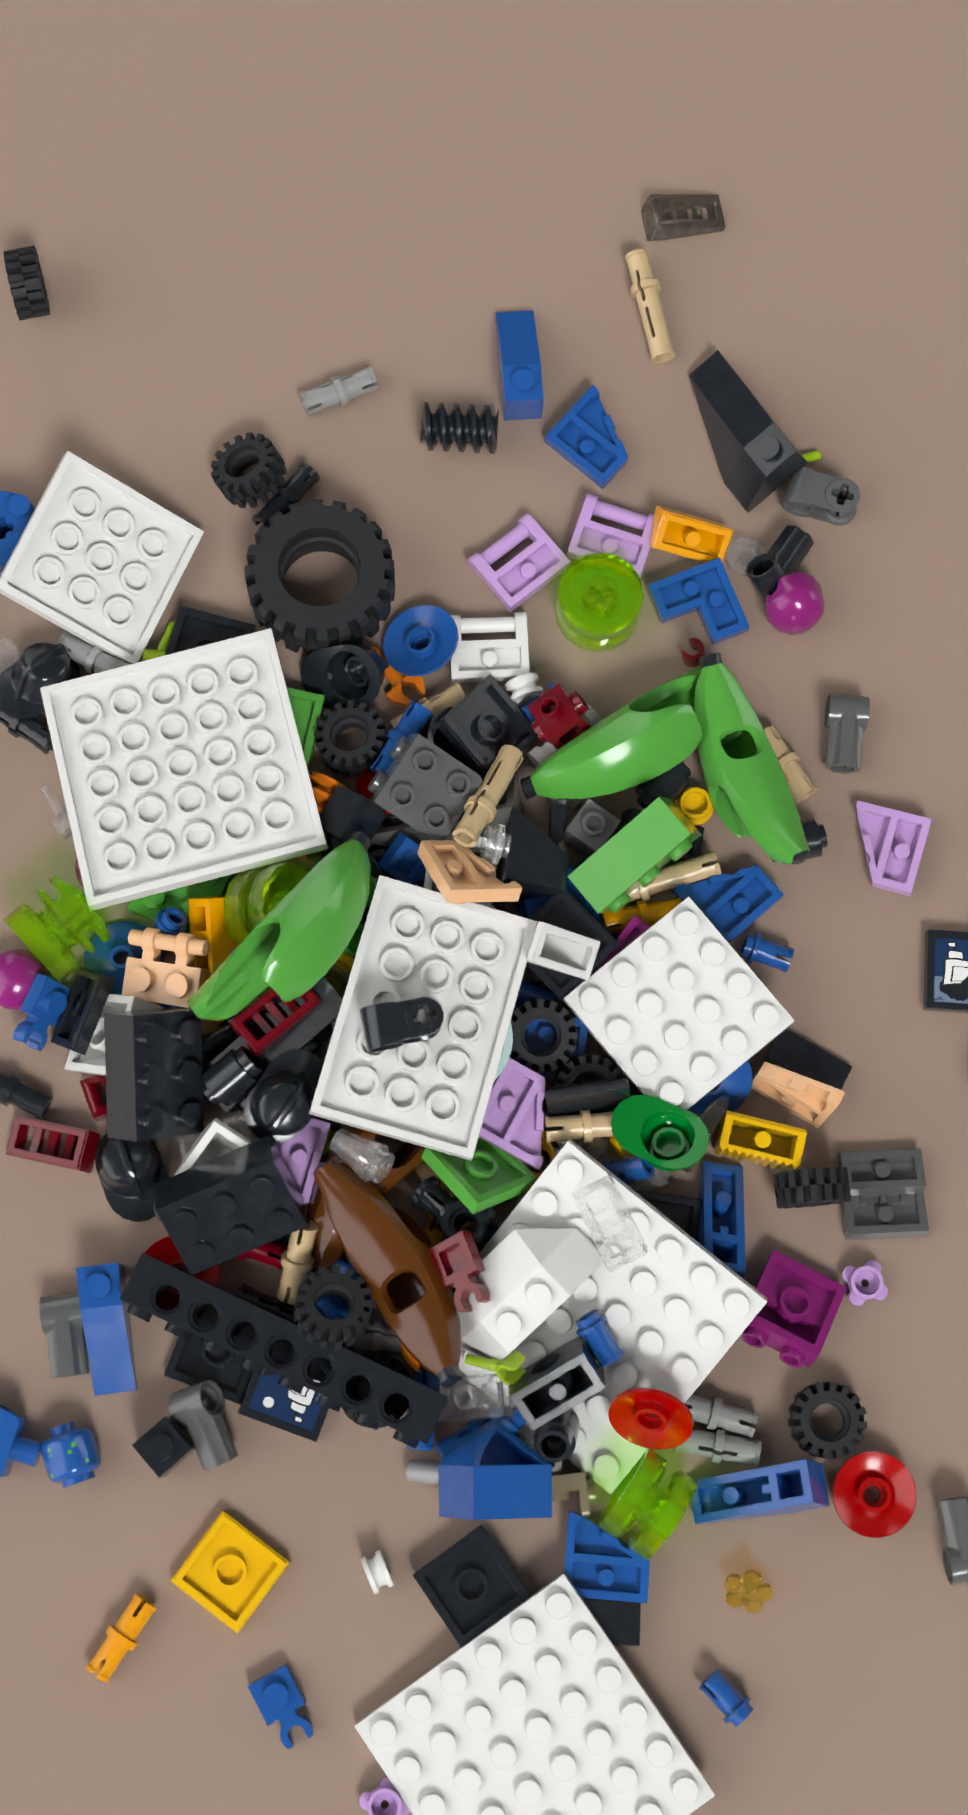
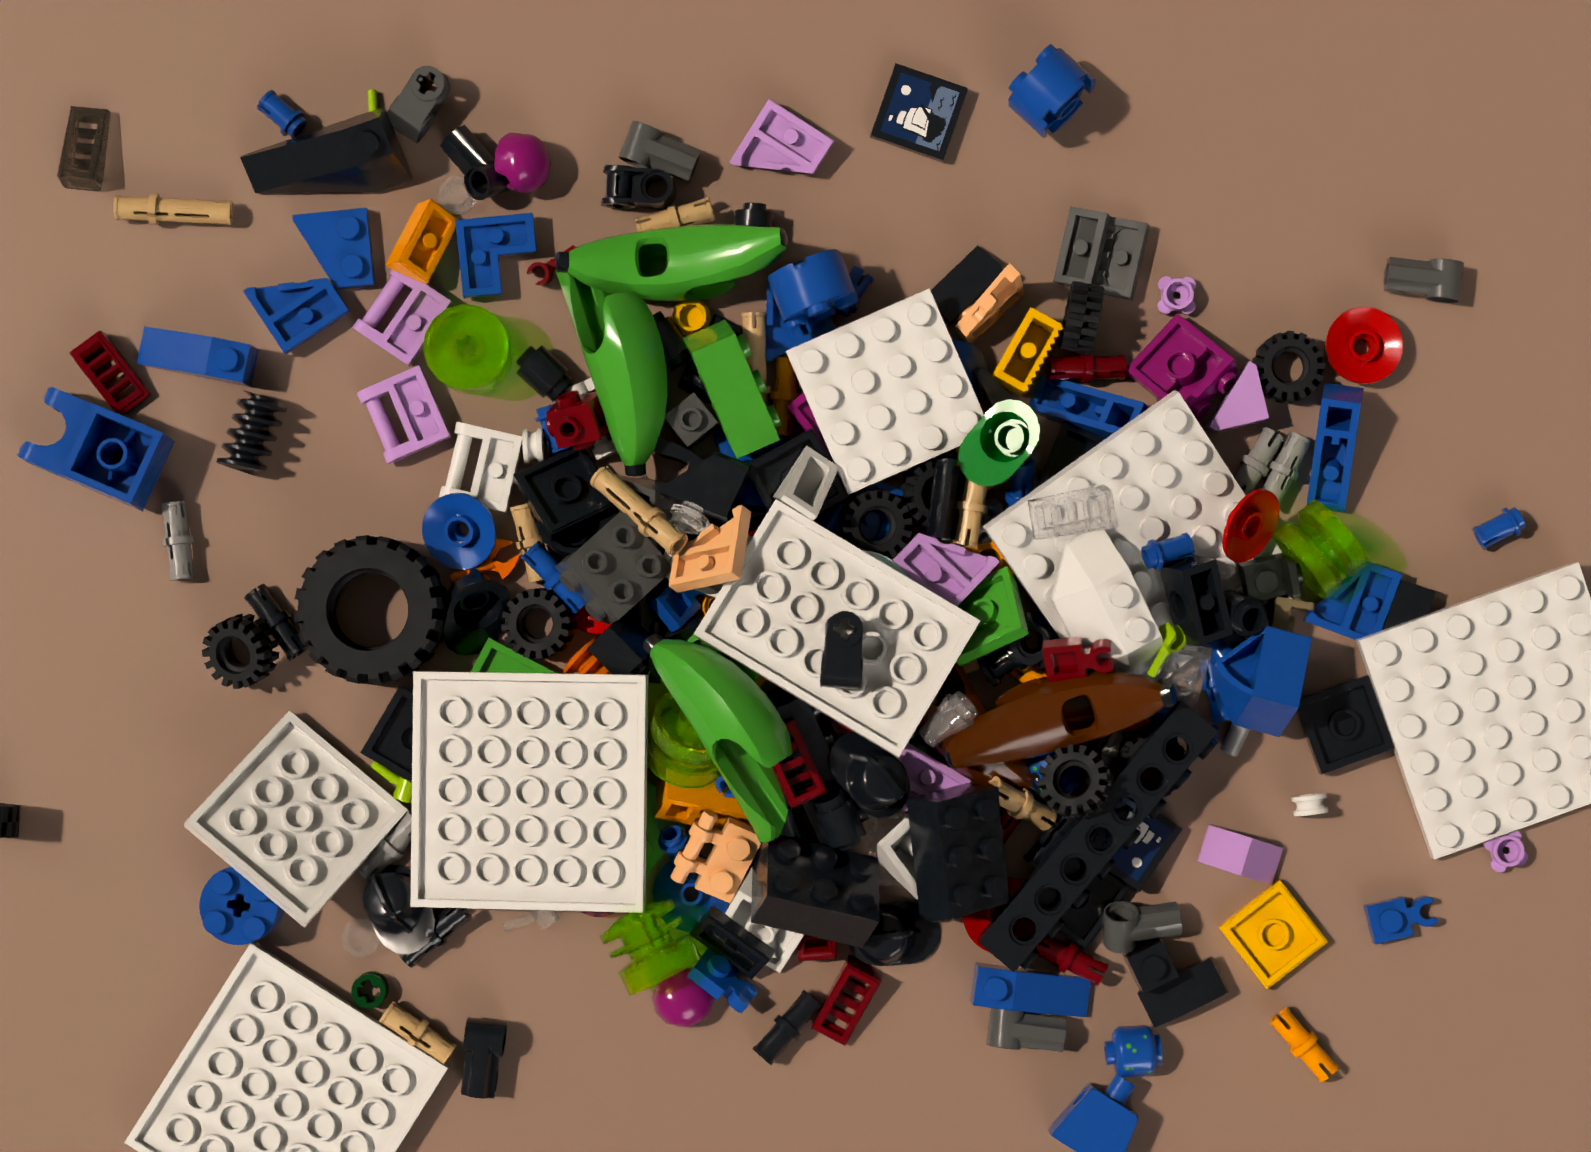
camera: 70 degrees left, 10 degrees up
(145, 1493) = (1194, 988): none -> black slope
(151, 1361) = (1072, 959): none -> dark red pin
(305, 1513) = (1240, 854): none -> lavender slope
(403, 300) = (92, 441): none -> blue brick
(487, 262) = (90, 346): none -> dark red slope
(598, 678) = (543, 372): none -> black brick
(603, 1459) = (1271, 577): none -> pearl dark grey bracket
(663, 464) = (341, 245): none -> blue wing
(747, 1591) = (1415, 481): clear yellow plant -> none
(758, 905) = (812, 288): none -> blue brick
(762, 1208) = (1085, 367): none -> dark red pin
(767, 384) = (282, 114): none -> blue pin
(772, 1380) = (1242, 403): none -> lavender slope
(804, 713) = (634, 188): none -> black piece

